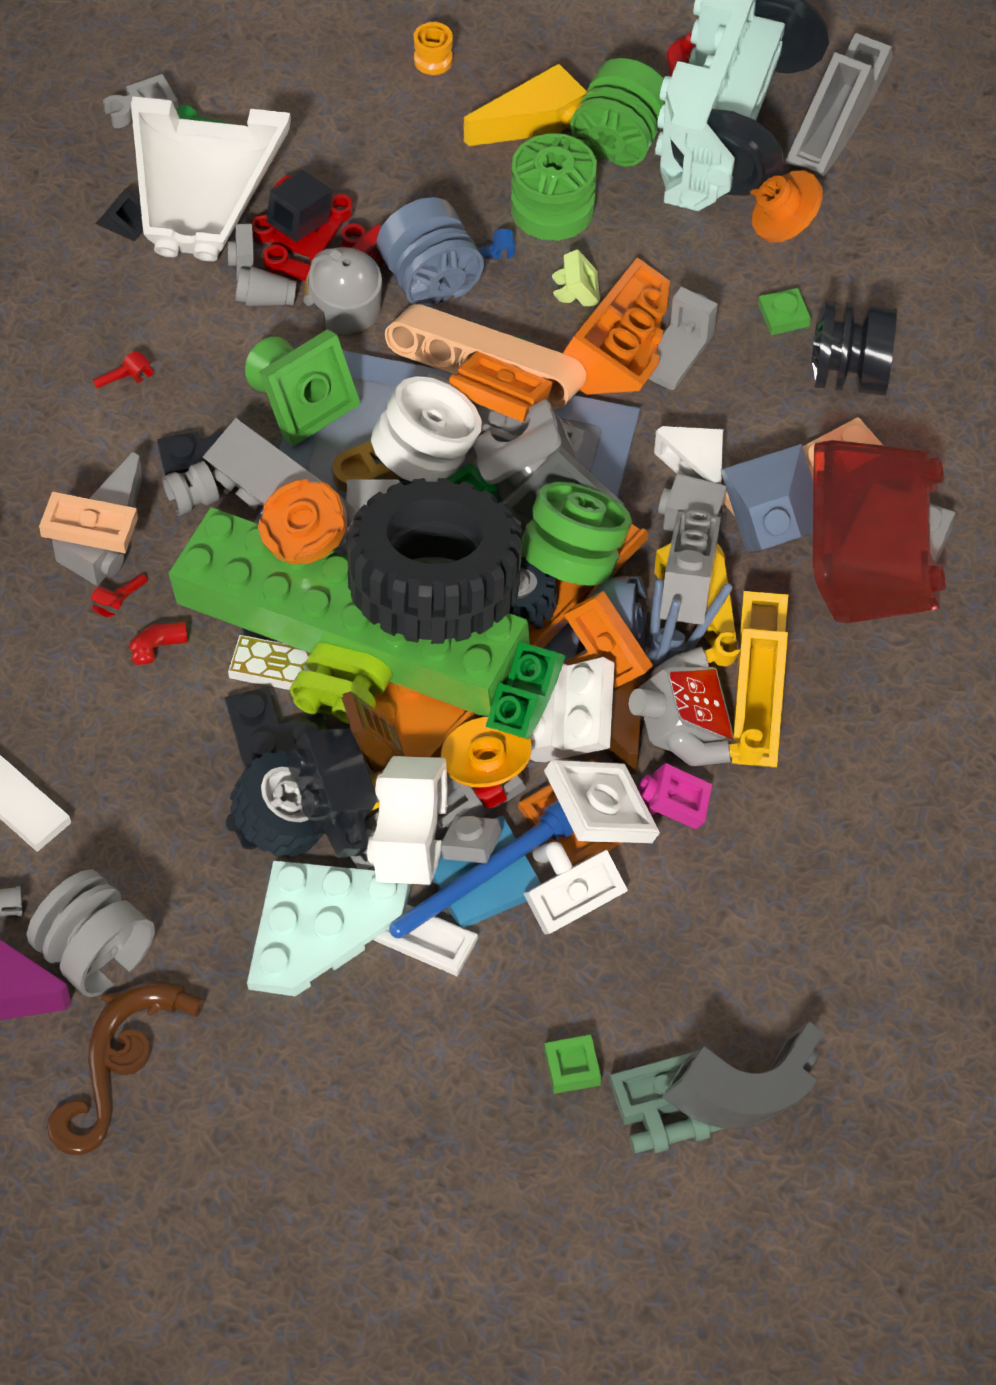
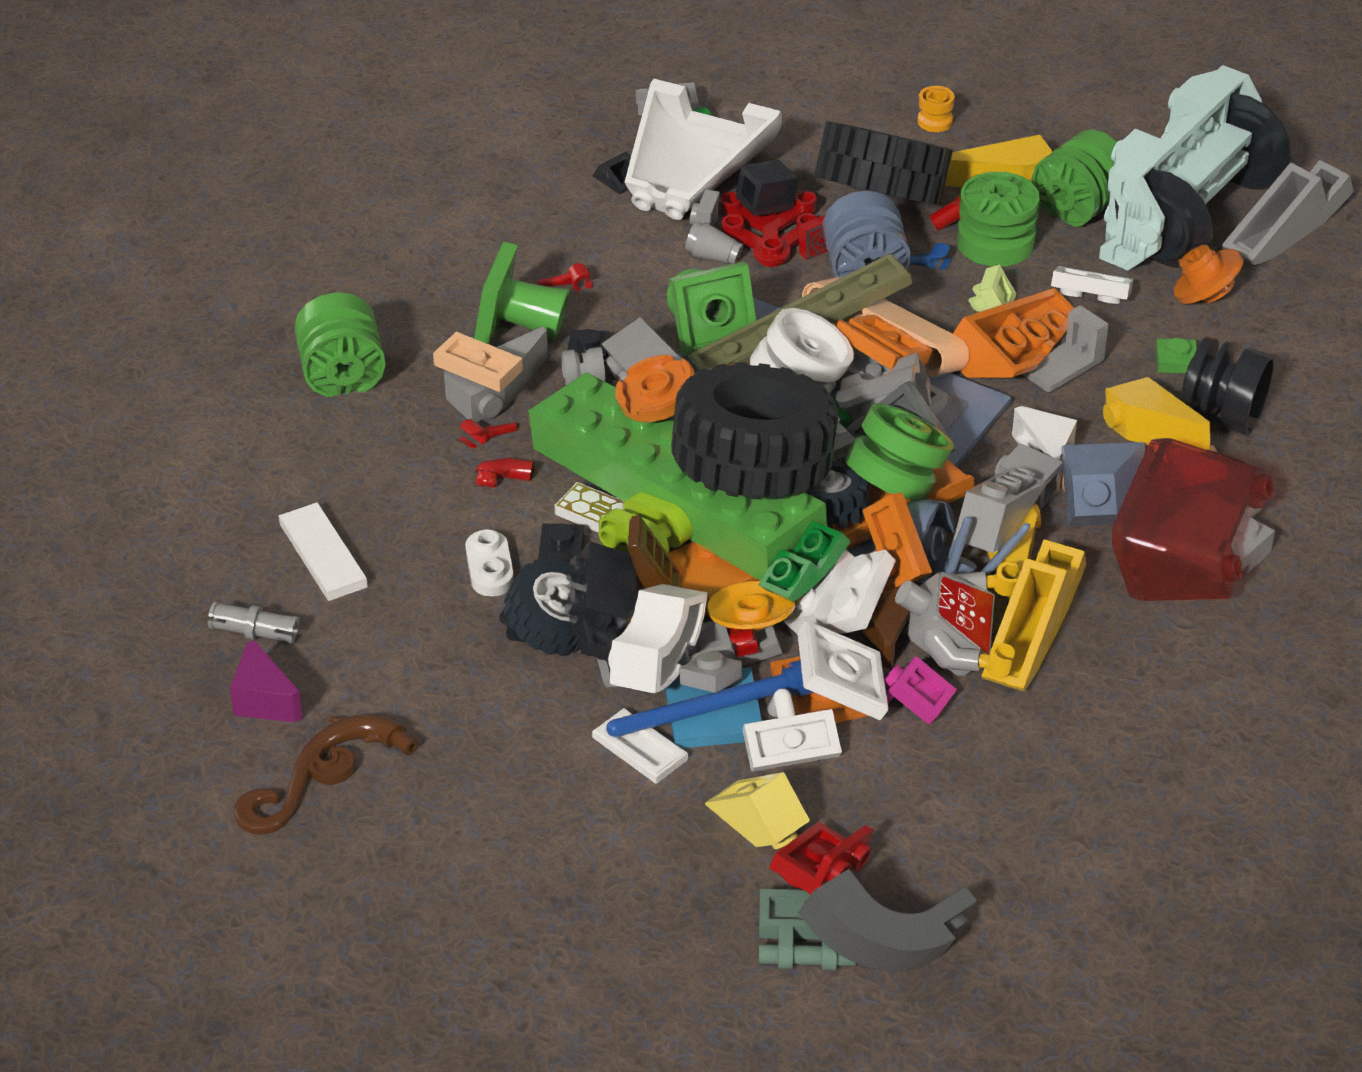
camera: 20 degrees right, 15 degrees down
(85, 927) = (337, 655): light grey wheel -> none
(93, 425) = (518, 301): none -> bright green plant
(185, 757) = (489, 562): none -> white plate
(317, 922) = (548, 707): light aqua plate -> none
(346, 288) = (781, 253): light grey helmet -> none
(417, 150) = (883, 163): none -> black tyre
(418, 355) = (830, 302): none -> olive tile
(497, 184) = (946, 215): none -> red arm
(572, 1064) = (729, 874): bright green plate -> none
(575, 982) = (761, 809): none -> light yellow slope
(657, 1023) = (821, 856): none -> red bracket
(688, 242) = (1075, 282): none -> white plate
(798, 405) = (1148, 411): none -> yellow slope

